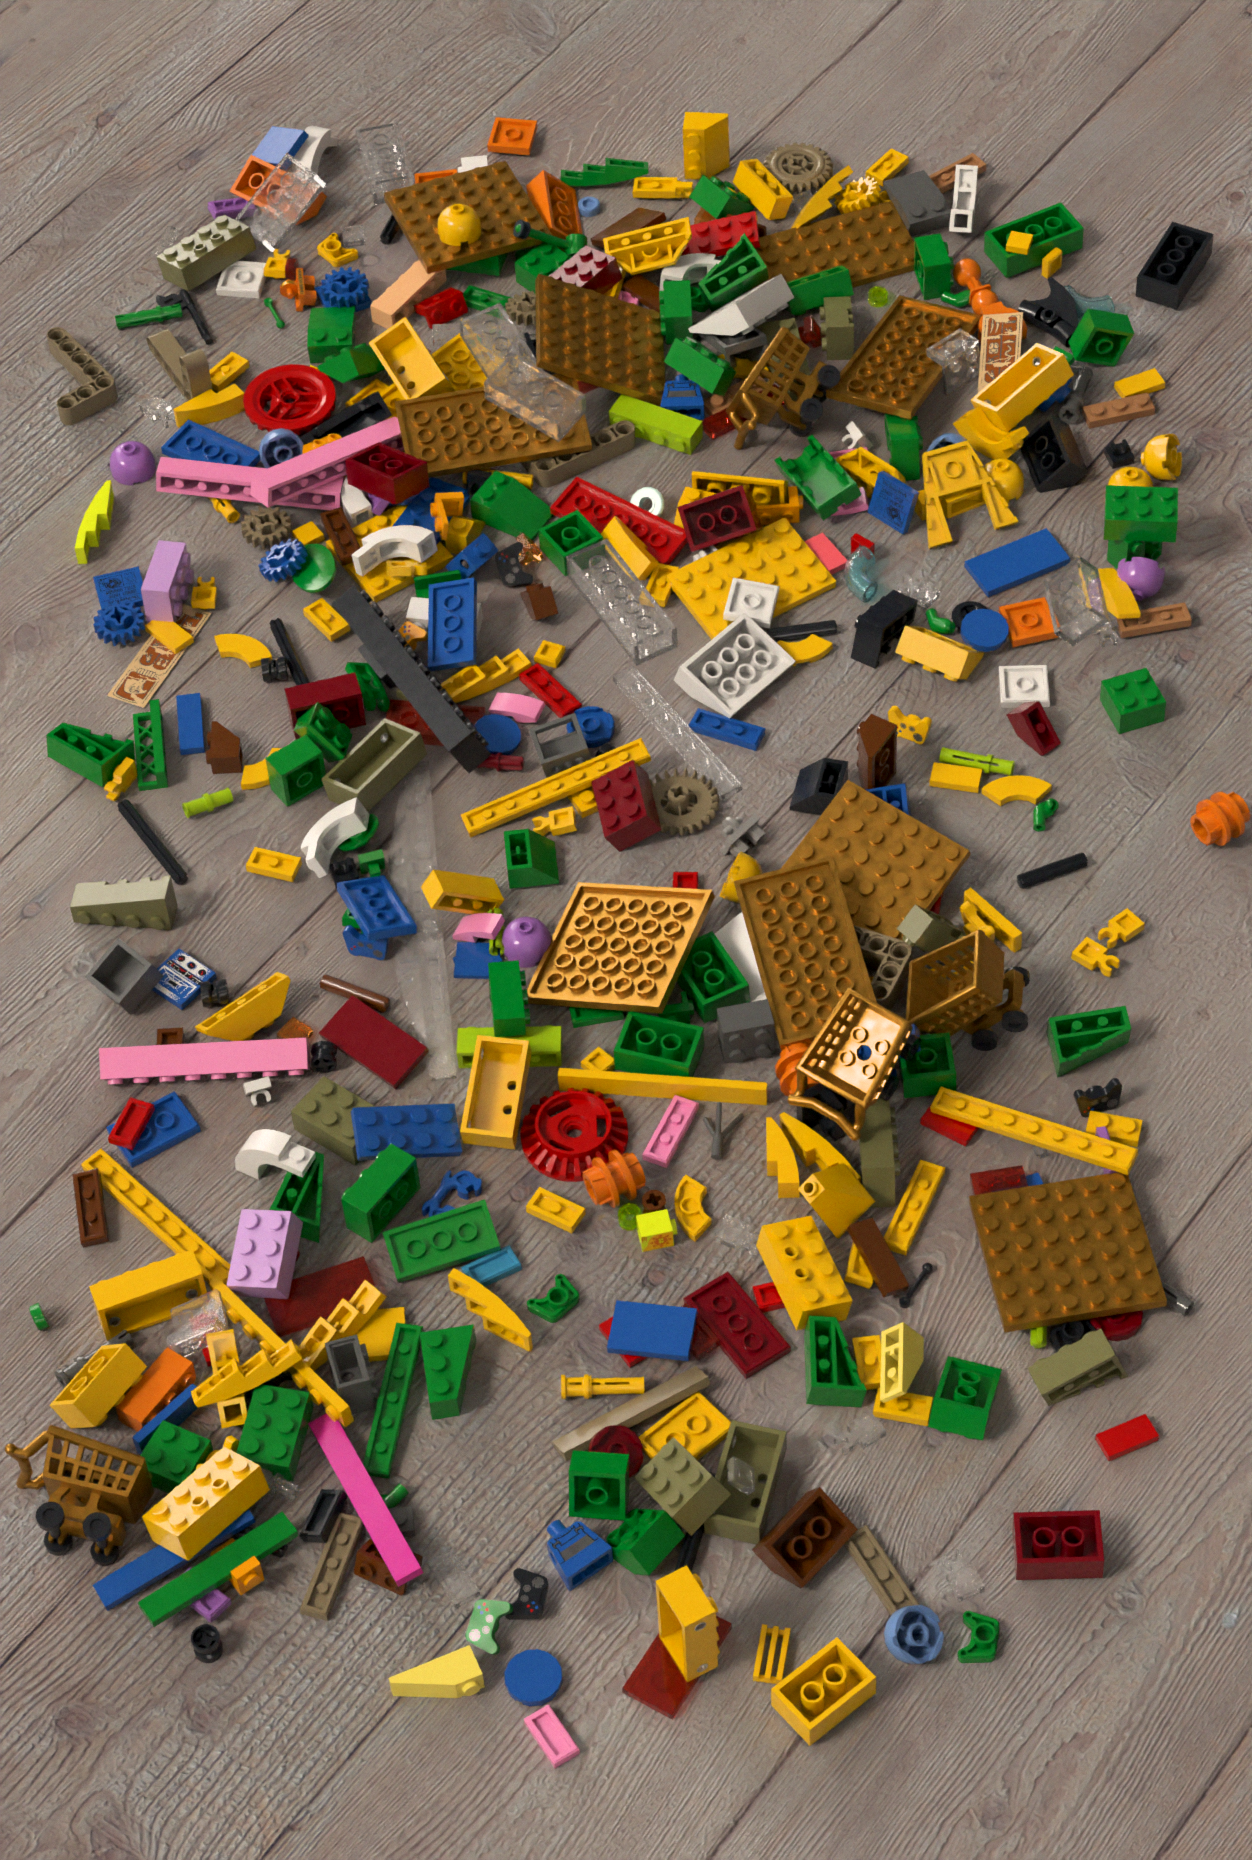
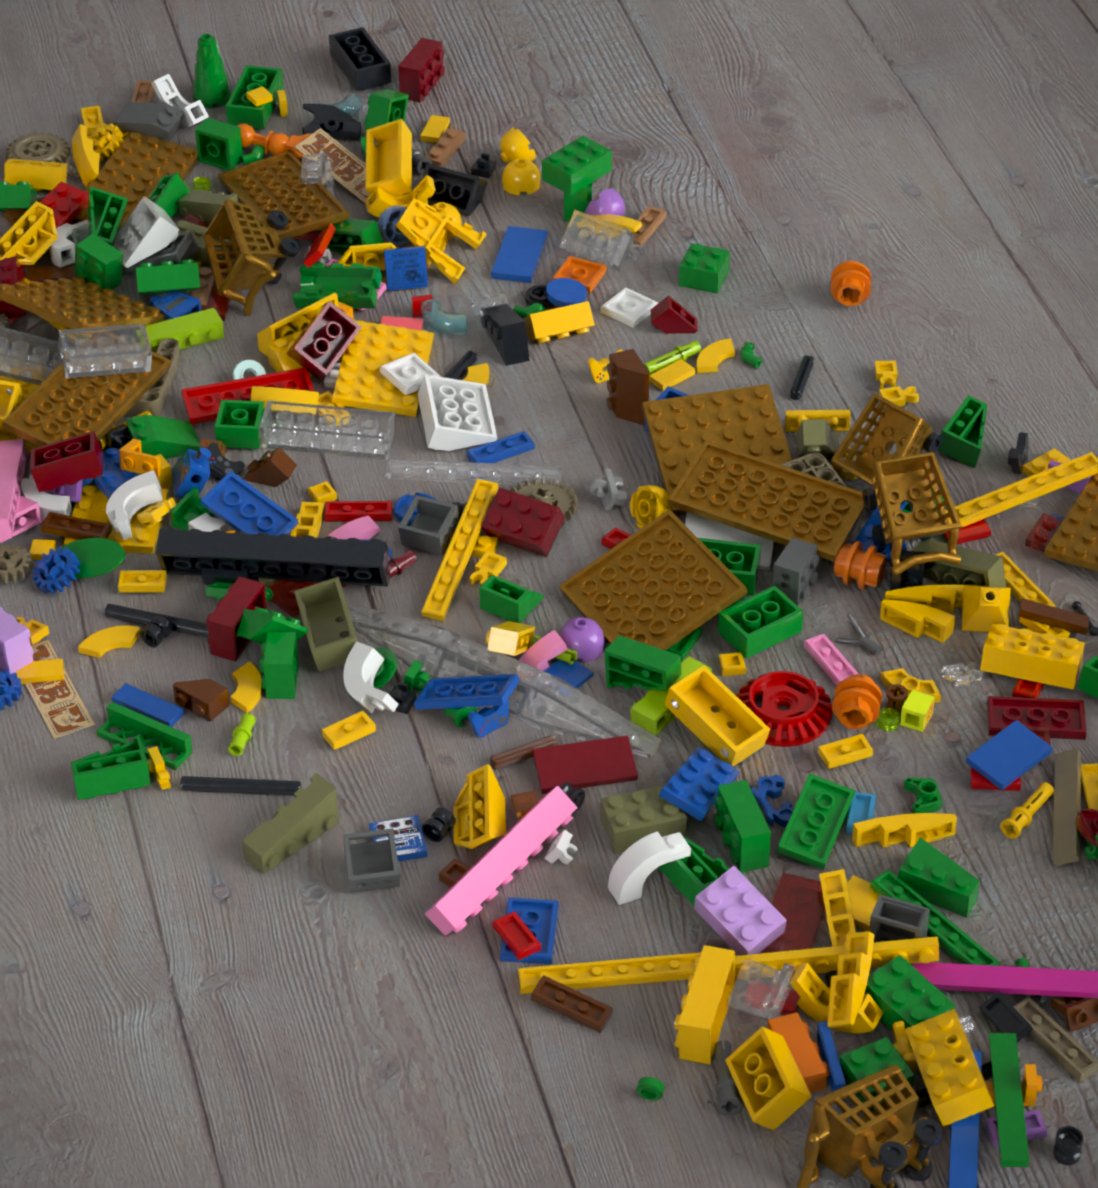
camera: 55 degrees left, 10 degrees down
(664, 1086) = (792, 640): yellow tile -> none
(818, 785) = (614, 430): black slope -> none
(845, 426) = (319, 245): none -> red tile
(1017, 188) = (210, 80): none -> green cone
(1202, 315) = (421, 69): none -> dark red brick

